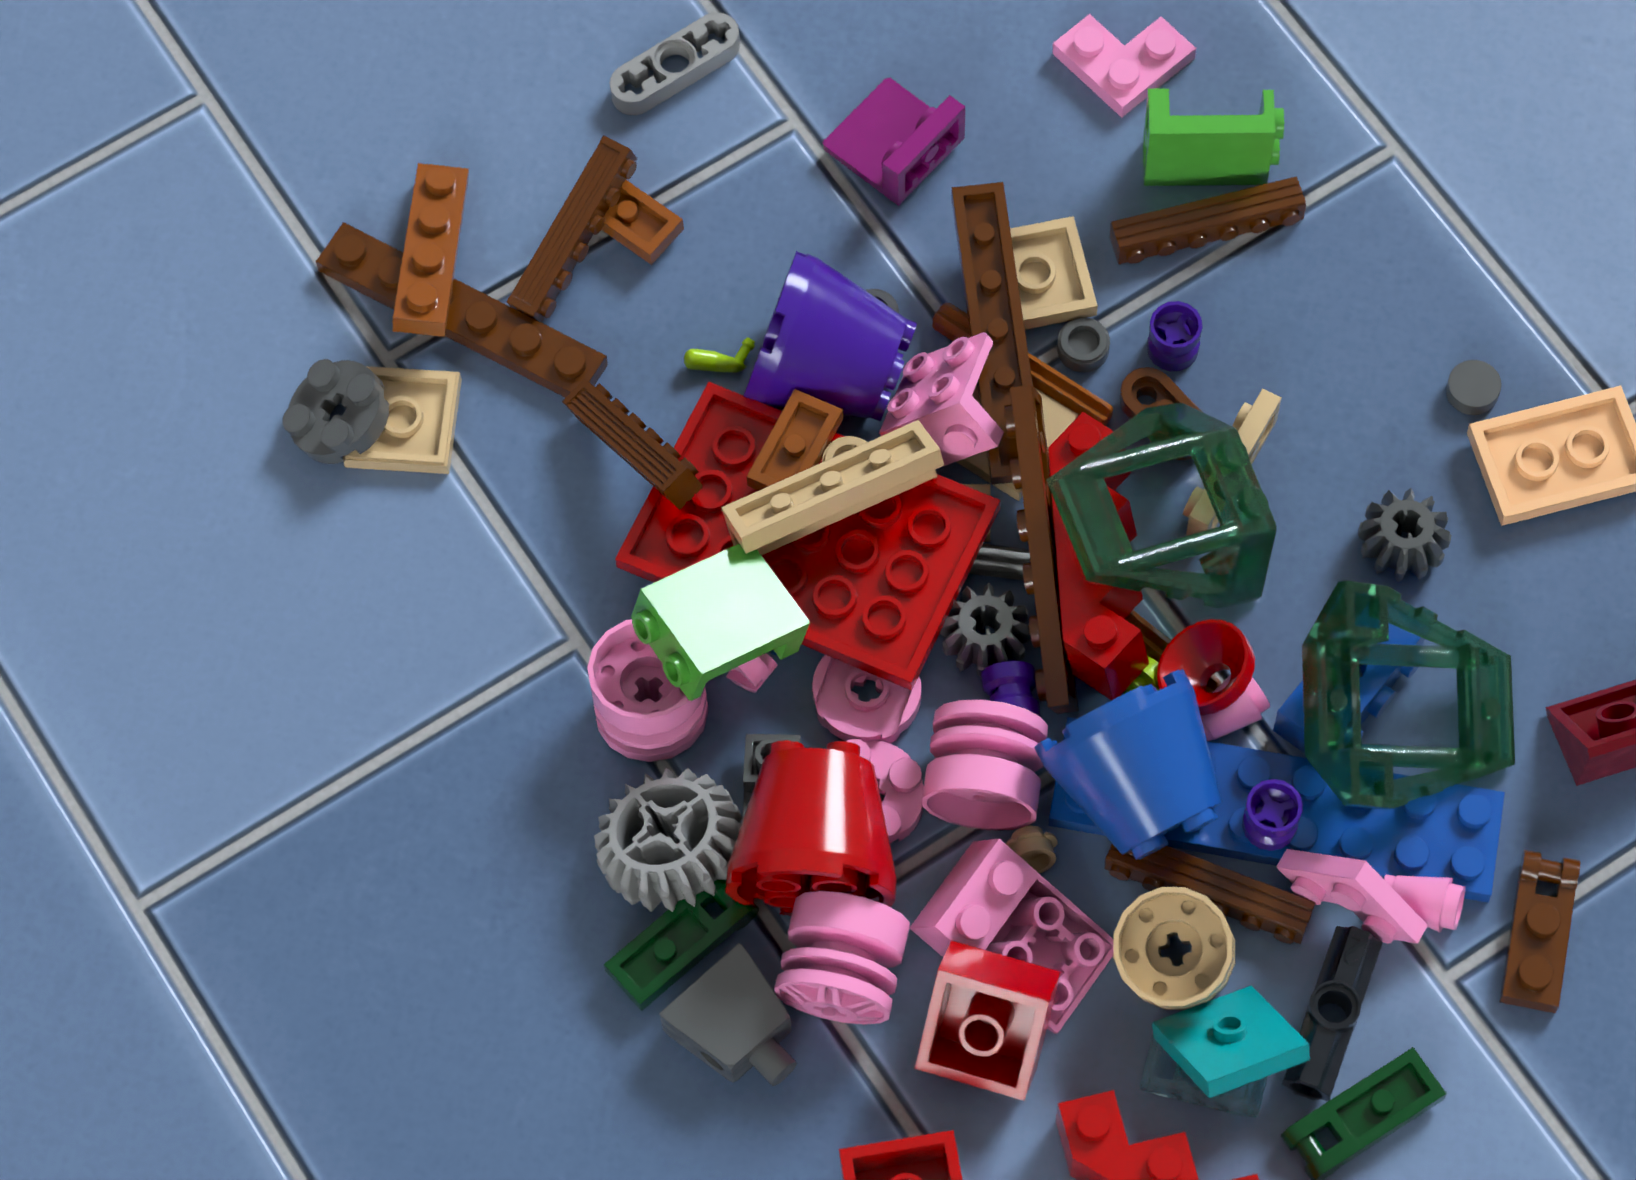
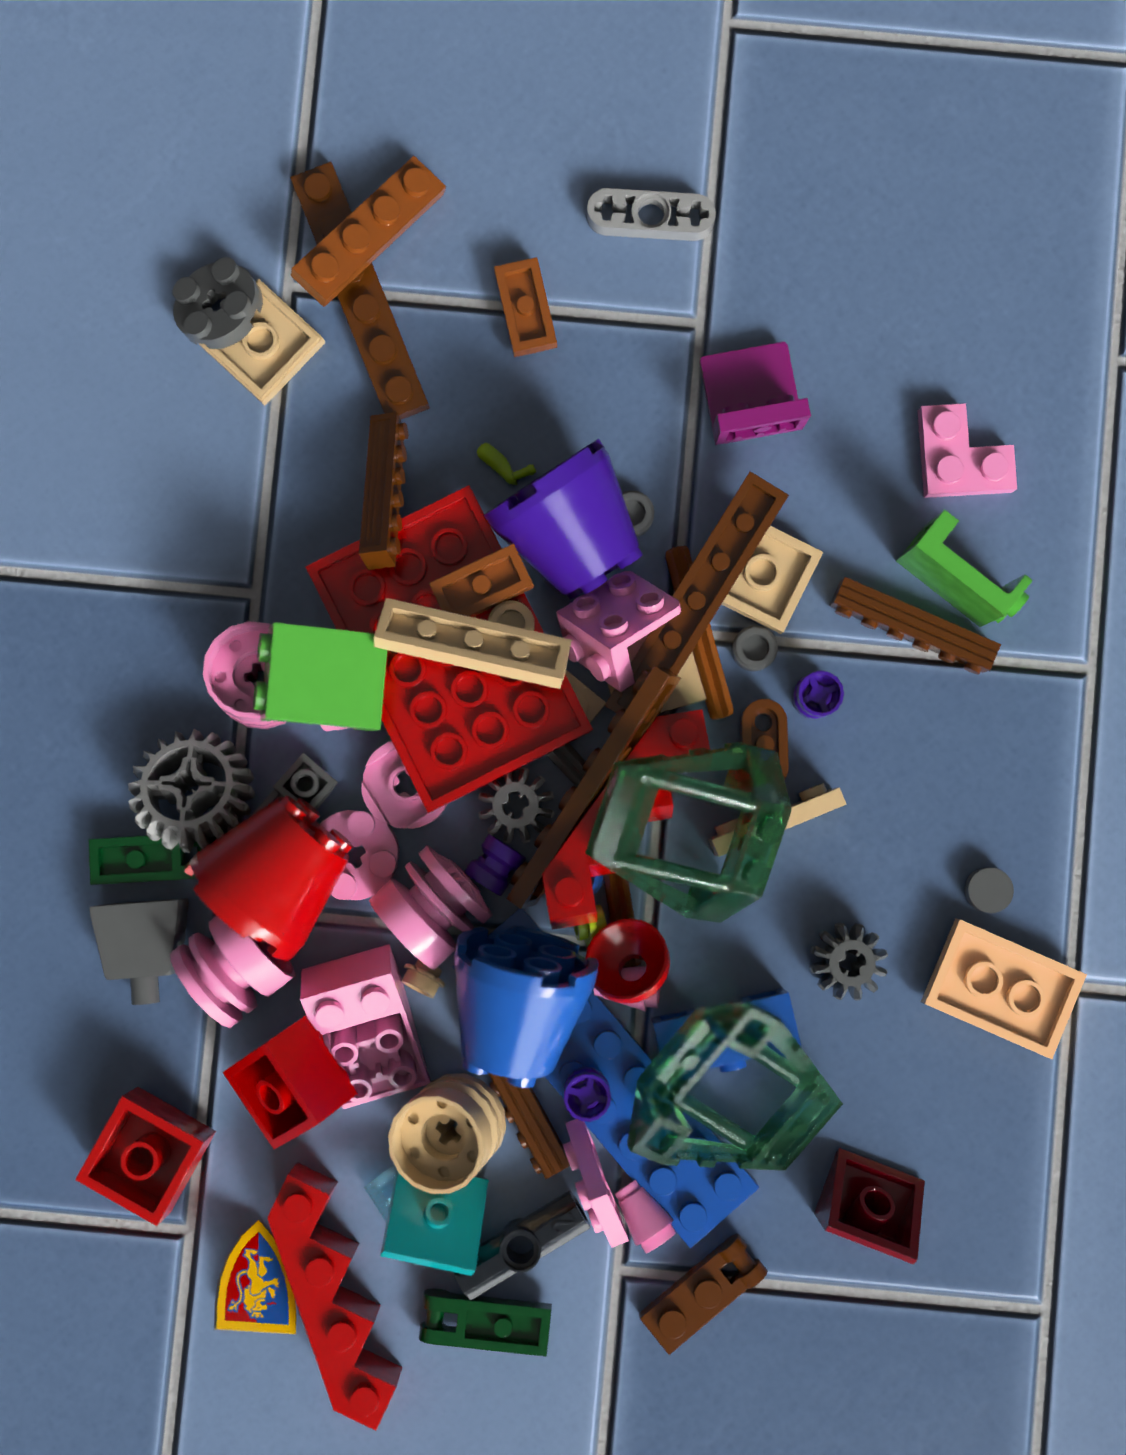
camera: 35 degrees right, 20 degrees up
(573, 229) = (474, 292): reddish brown piece -> none

